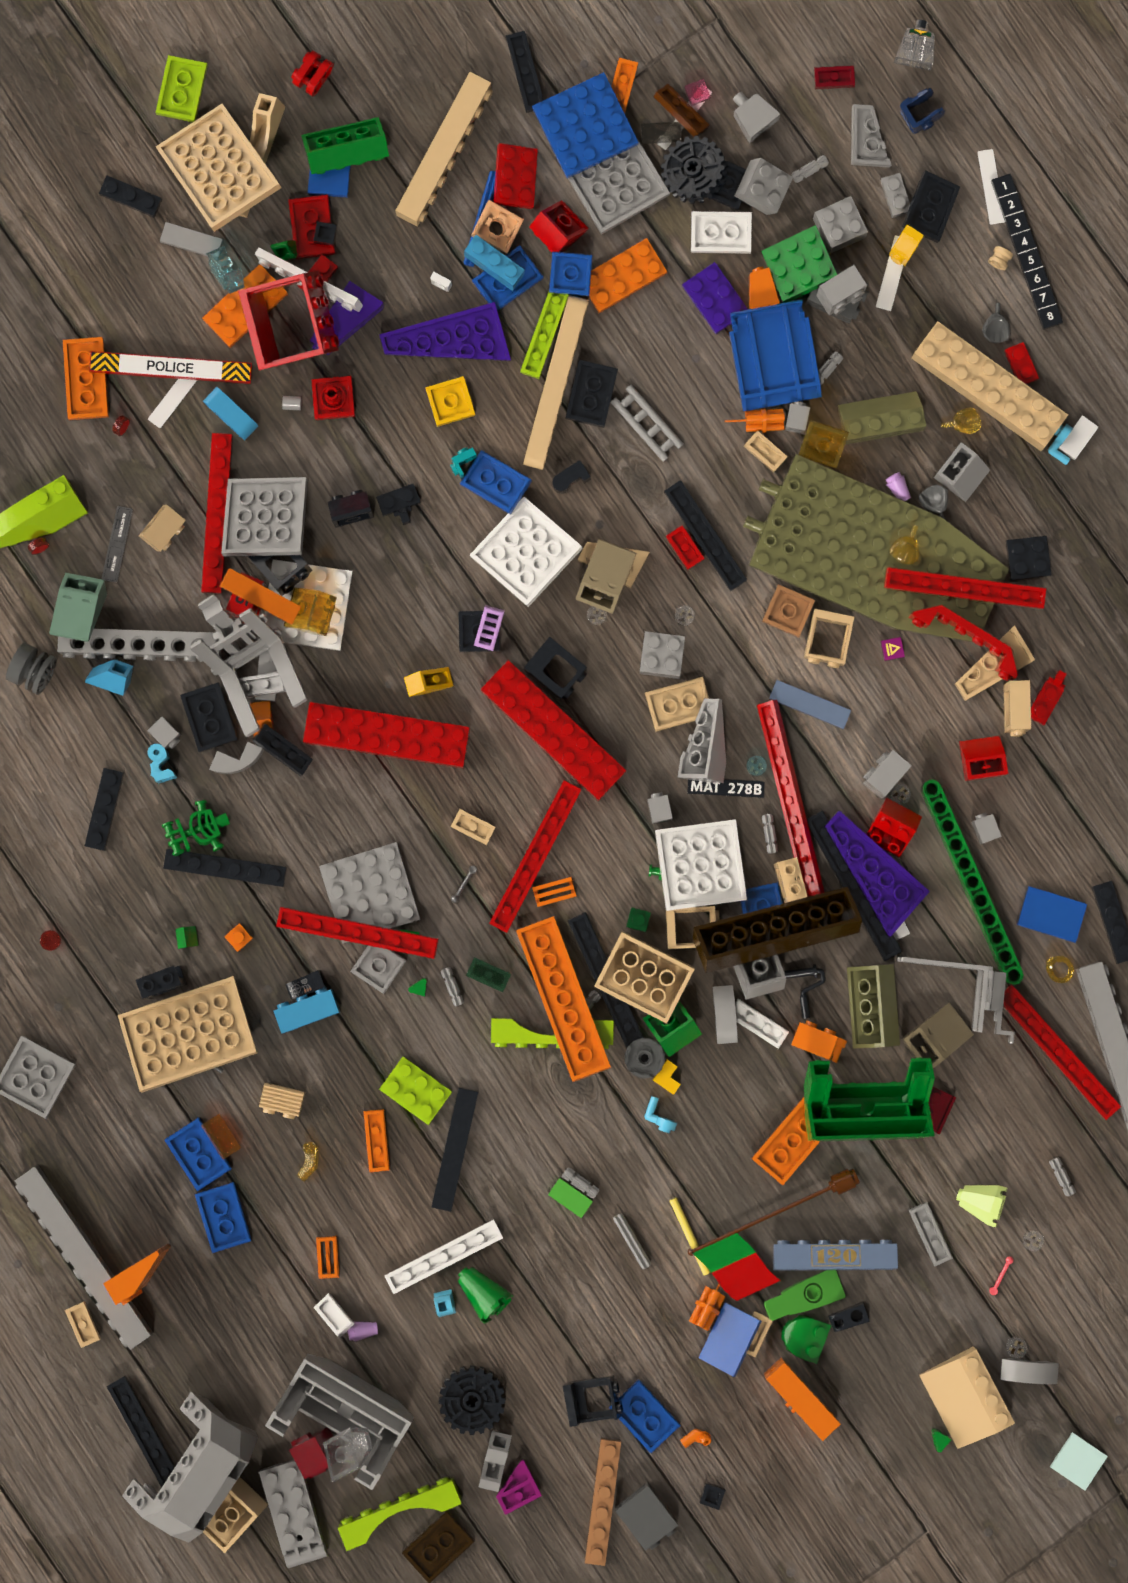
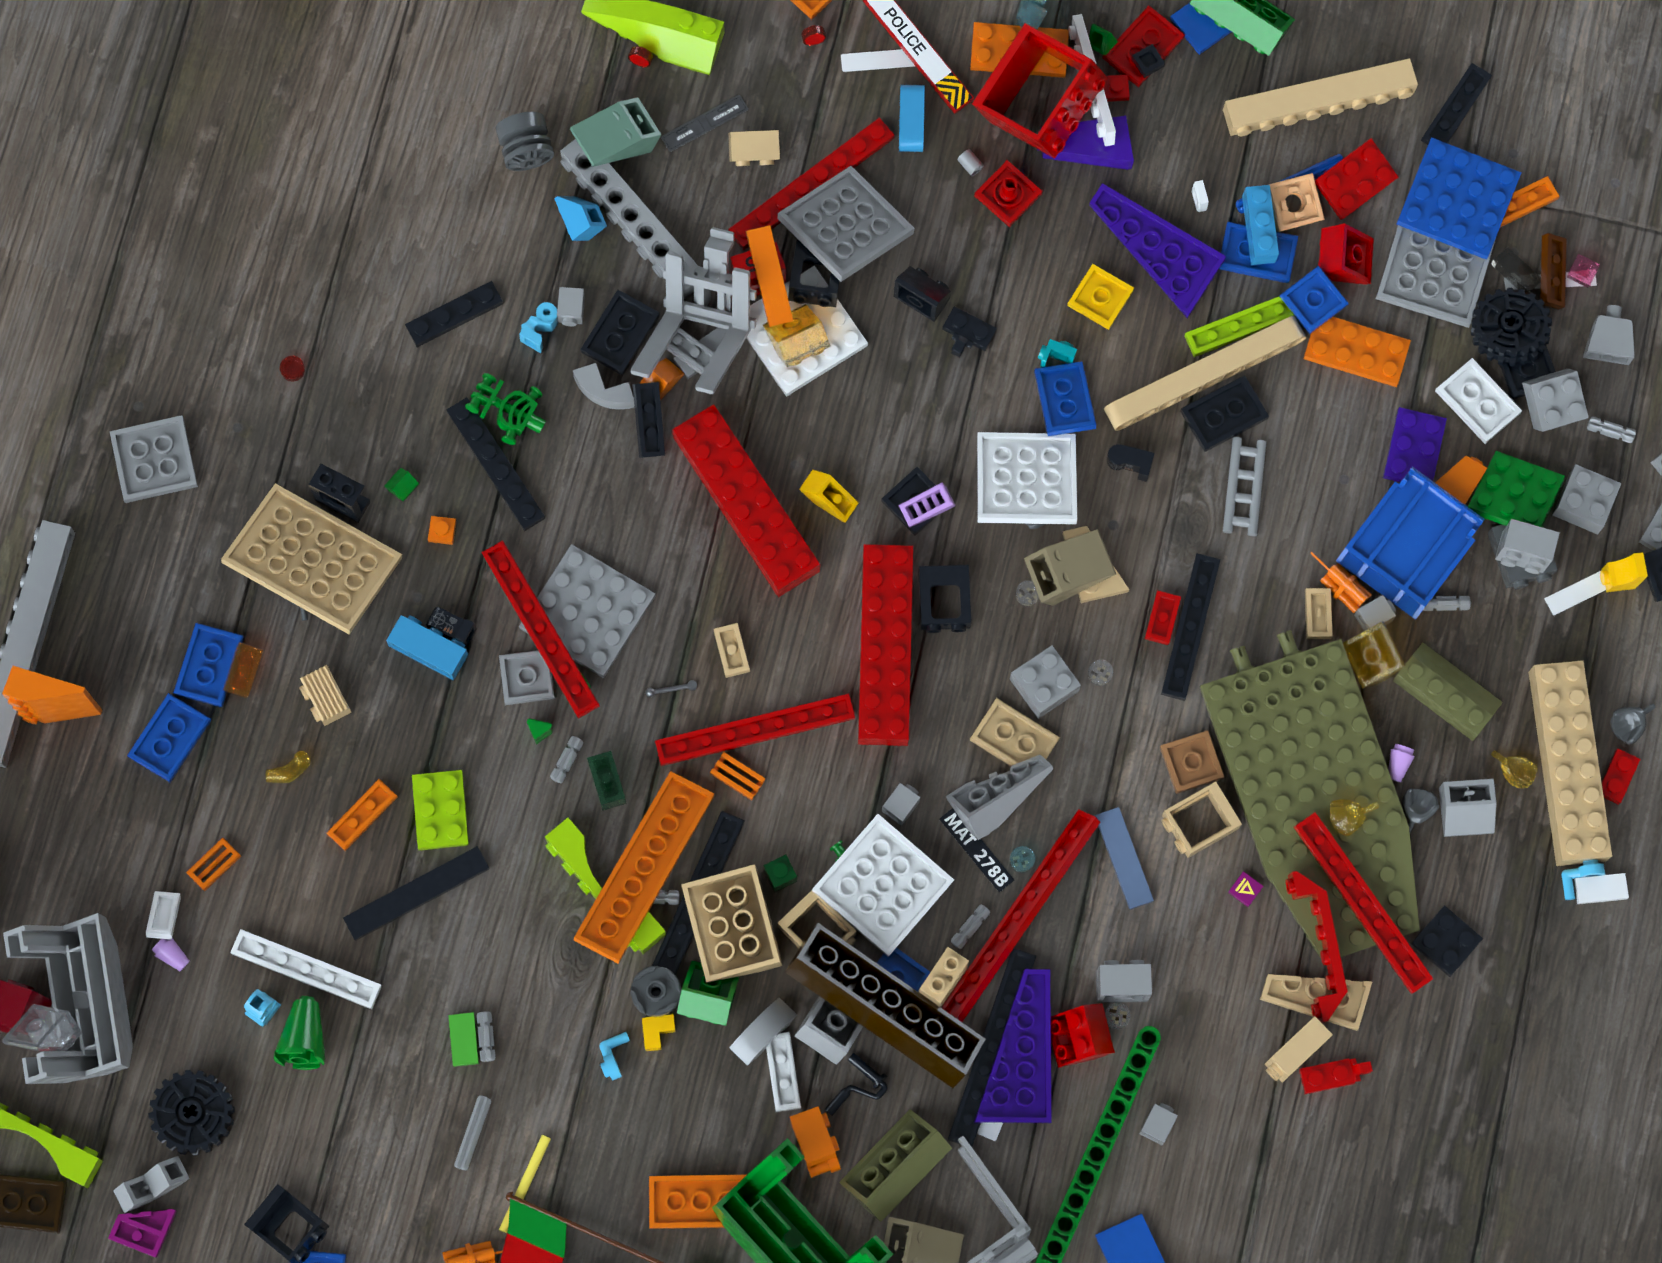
camera: 45 degrees right, 10 degrees down
(983, 758) = (1221, 1062): red slope -> none

